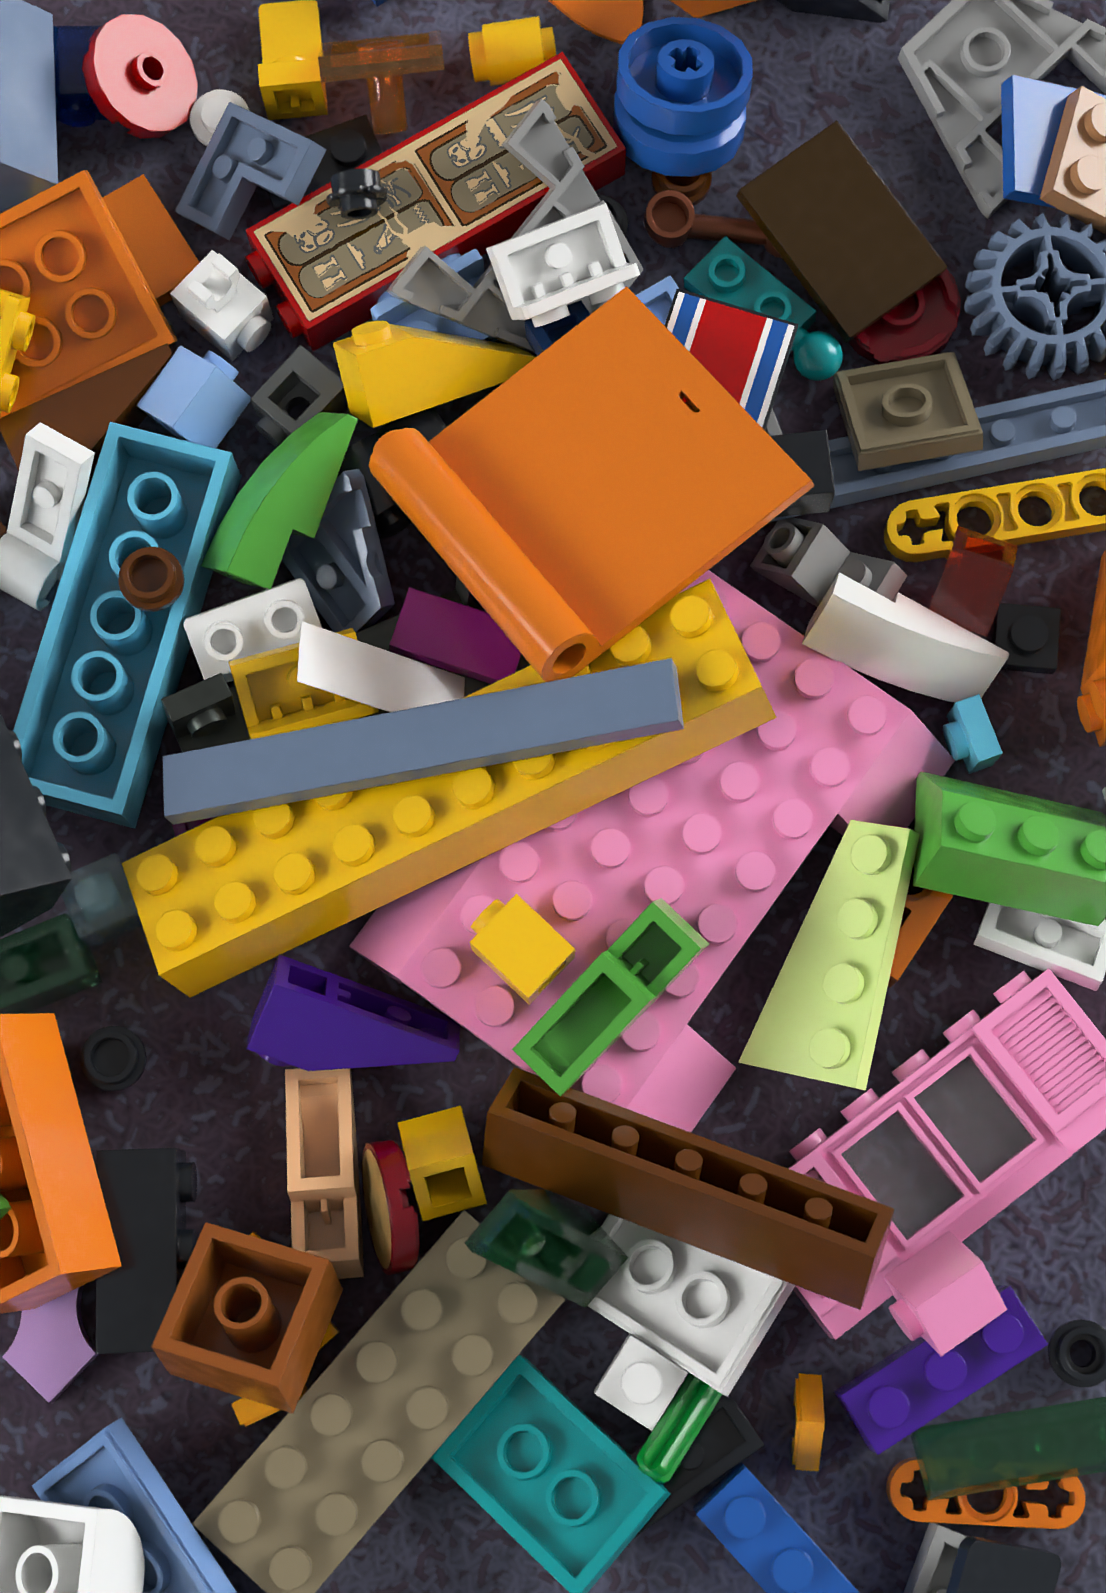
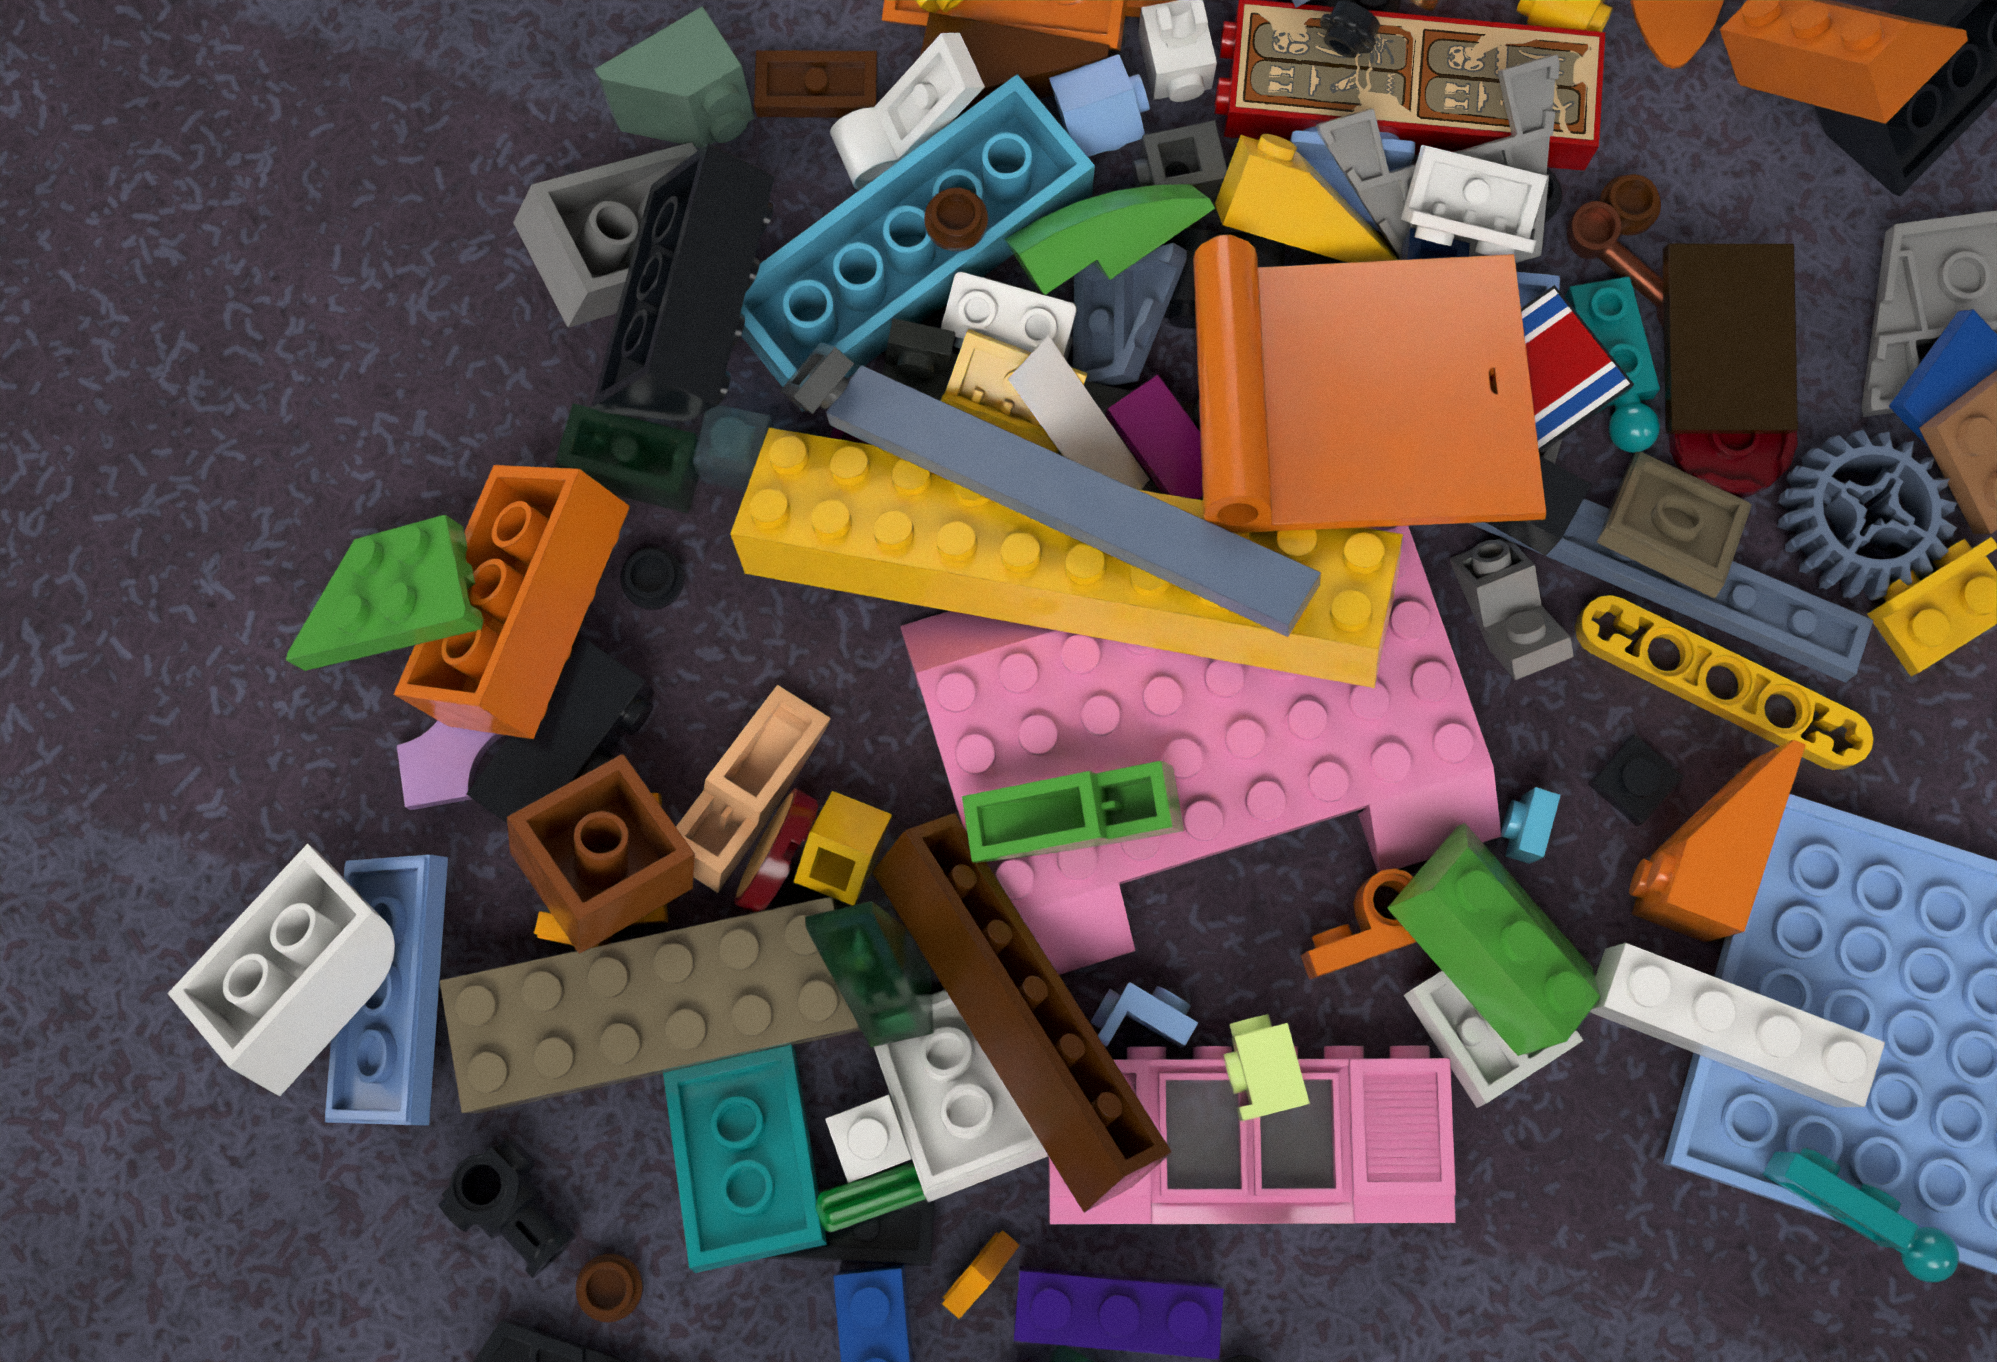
camera: 35 degrees right, 0 degrees up
(137, 793) = (819, 379): none -> dark grey plate
(336, 1023) = (843, 677): dark purple slope -> none
(520, 947) = (1029, 720): yellow brick -> none
(682, 96) = (1678, 135): blue wheel -> none
(794, 1103) = (1159, 1012): none -> light blue bracket
(837, 973) = (1274, 932): yellowish green wing -> none
(902, 643) = (1527, 708): white slope -> none
(914, 1086) = (1264, 1068): none -> yellowish green brick
(943, 1294) = (1162, 1253): bright pink brick -> none
(973, 580) = (1623, 700): clear red brick -> none

